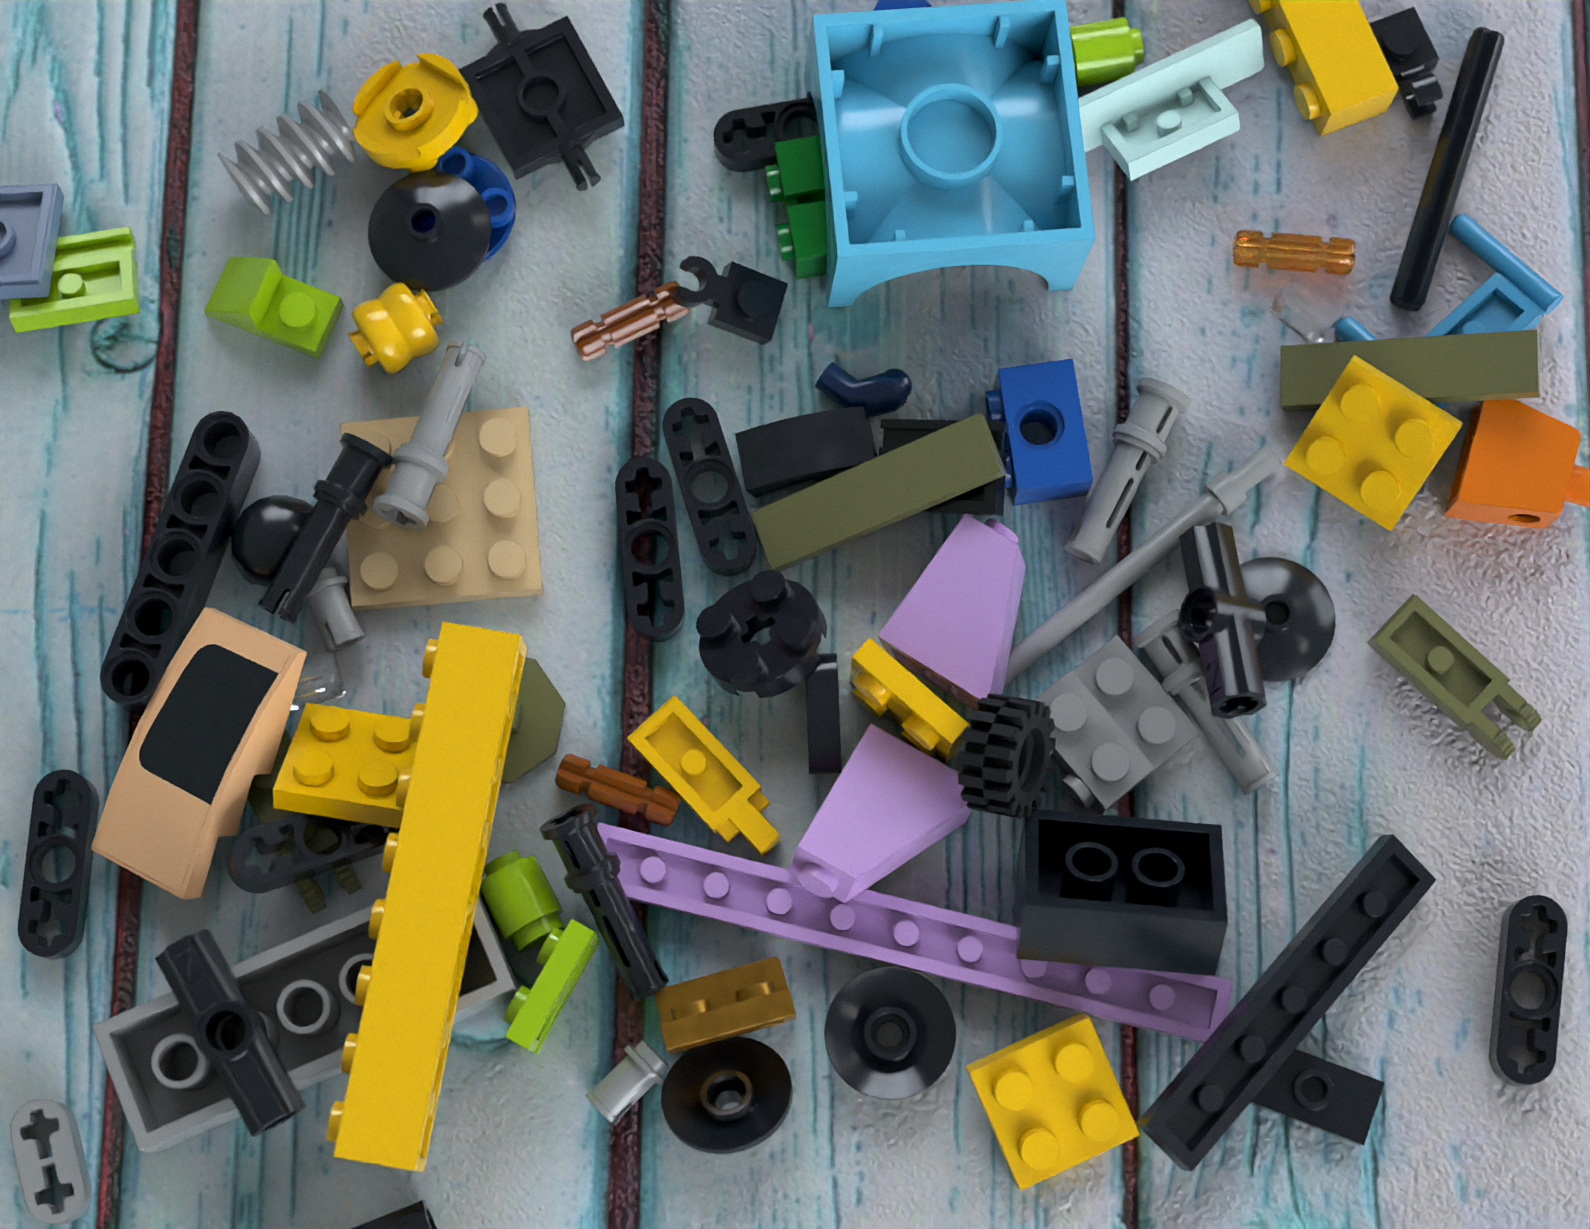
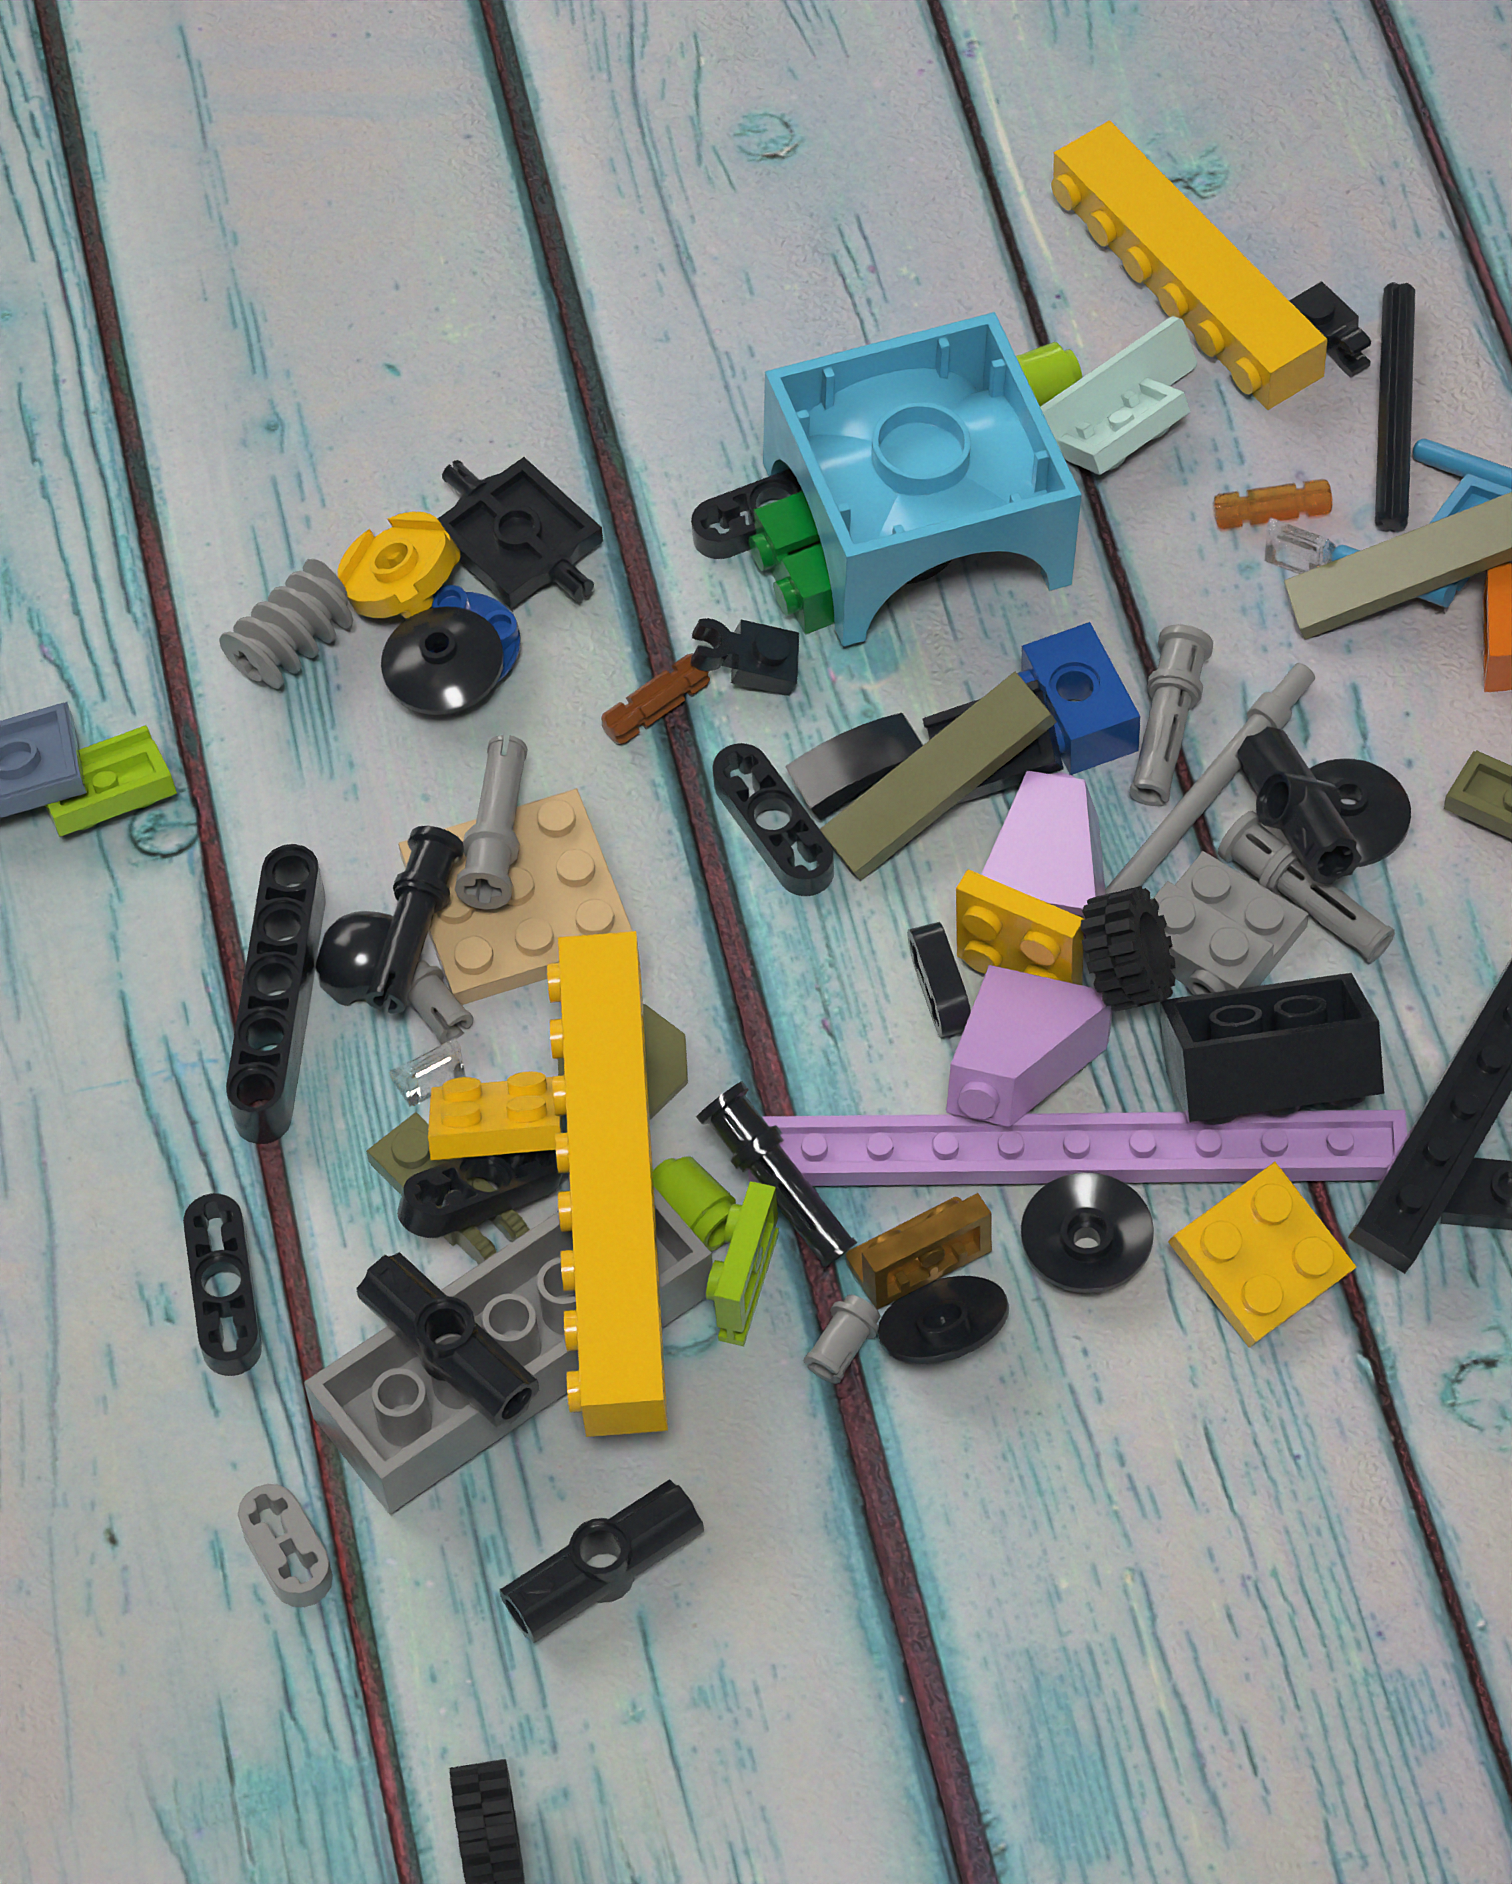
camera: 10 degrees left, 20 degrees down
(197, 752) = (340, 1140): light nougat slope -> none
(274, 306) = (295, 762): lime slope -> none
(395, 328) = (431, 749): yellow piece -> none
(617, 790) = (765, 1092): dark orange axle -> none
(629, 507) = (727, 909): black beam -> none
(705, 775) = (842, 1059): yellow hinge -> none
(746, 610) = (834, 928): black plate -> none
(877, 393) = (914, 701): dark blue arm -> none
(1373, 443) = (1395, 633): yellow plate -> none

